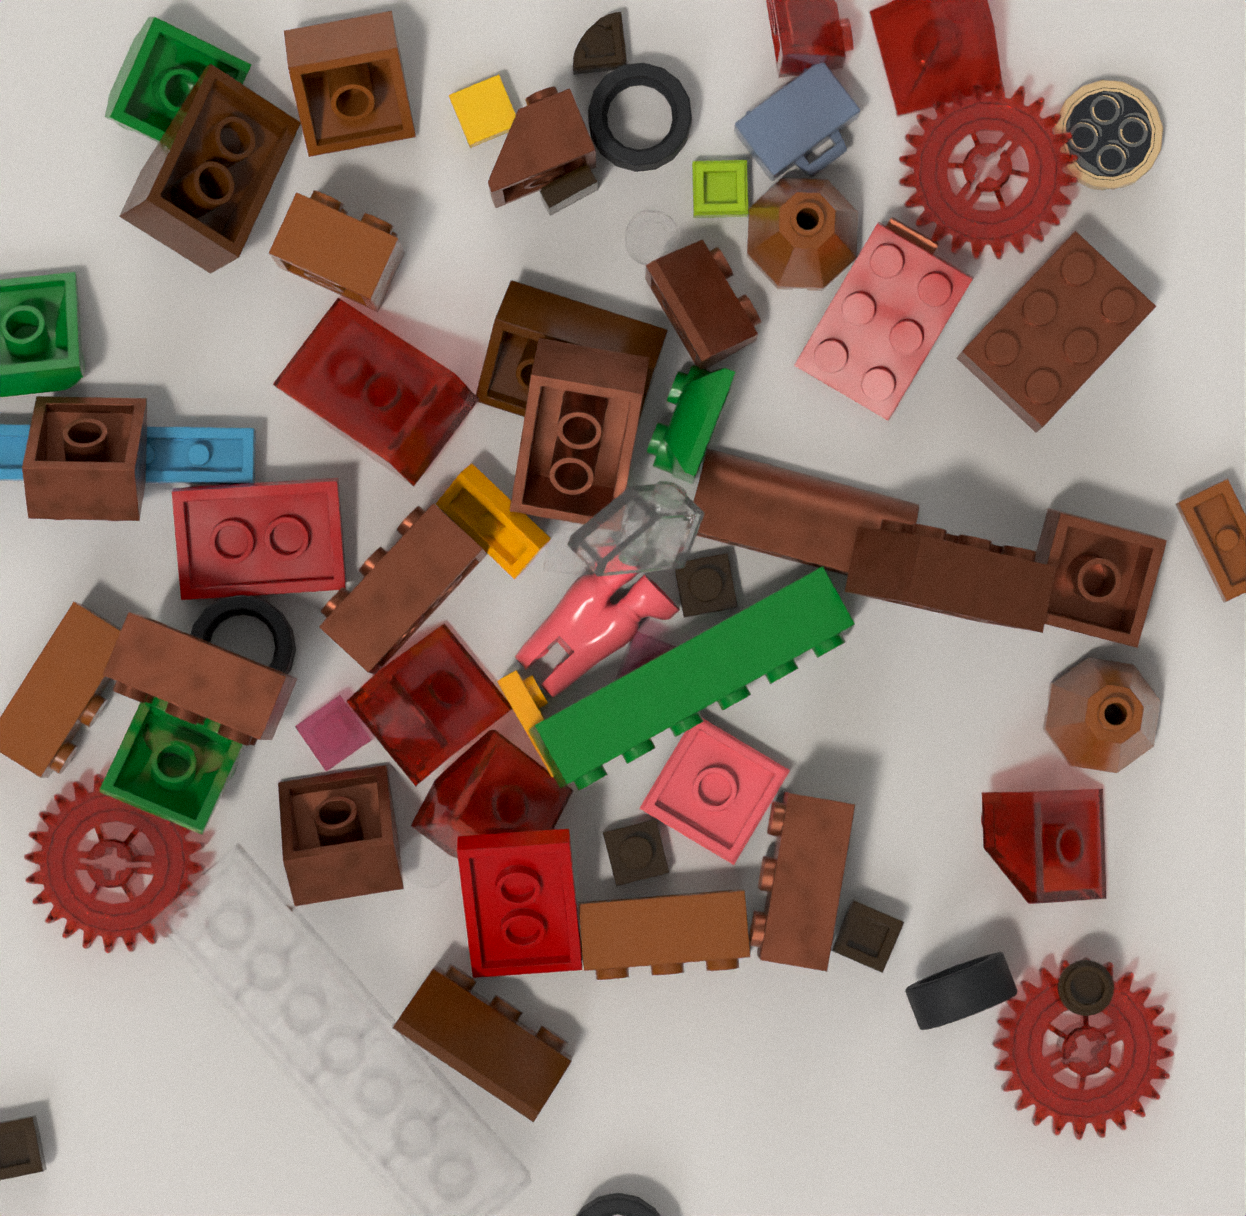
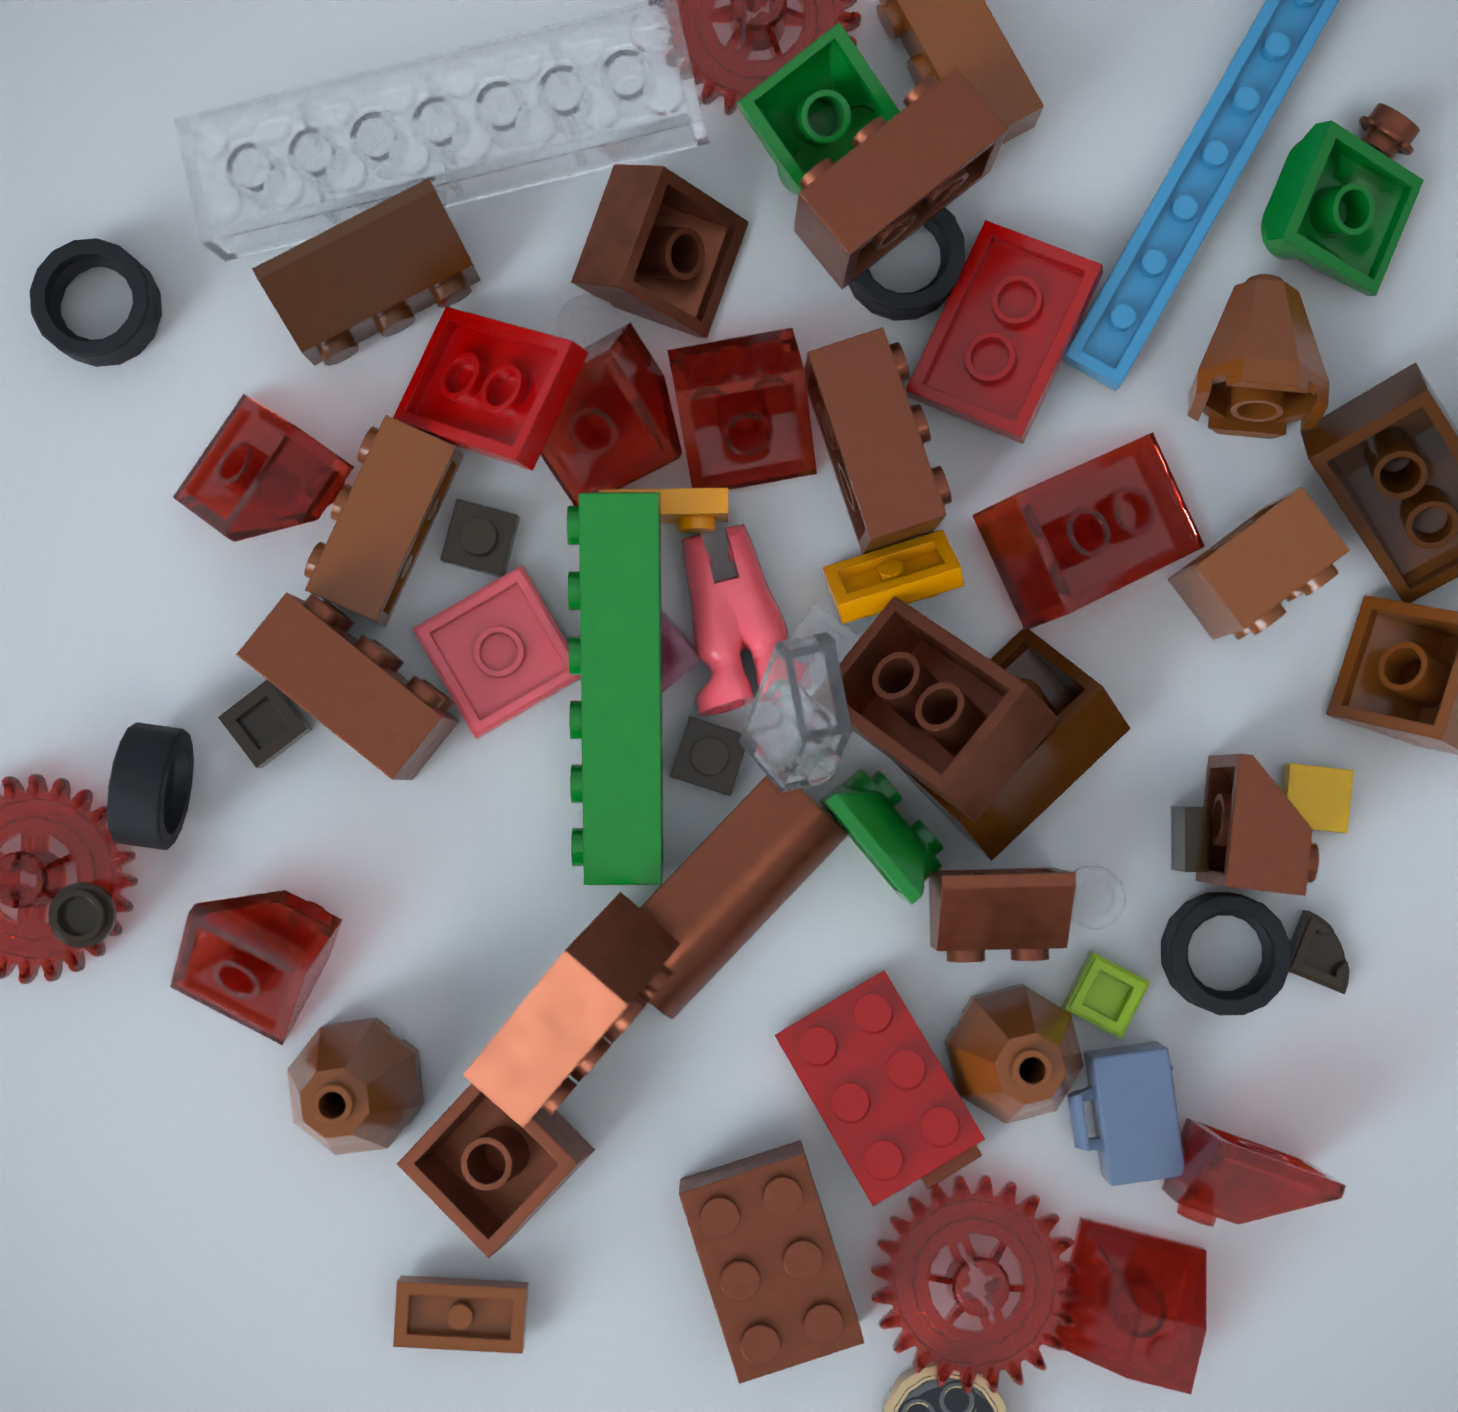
camera: 115 degrees right, 0 degrees up
(86, 458) = (1183, 194): copper slope -> none
(178, 332) = (1261, 364): none -> dark orange cone
(333, 733) = (767, 300): clear pink plate -> none
(682, 1045) = (261, 475): none -> clear red slope

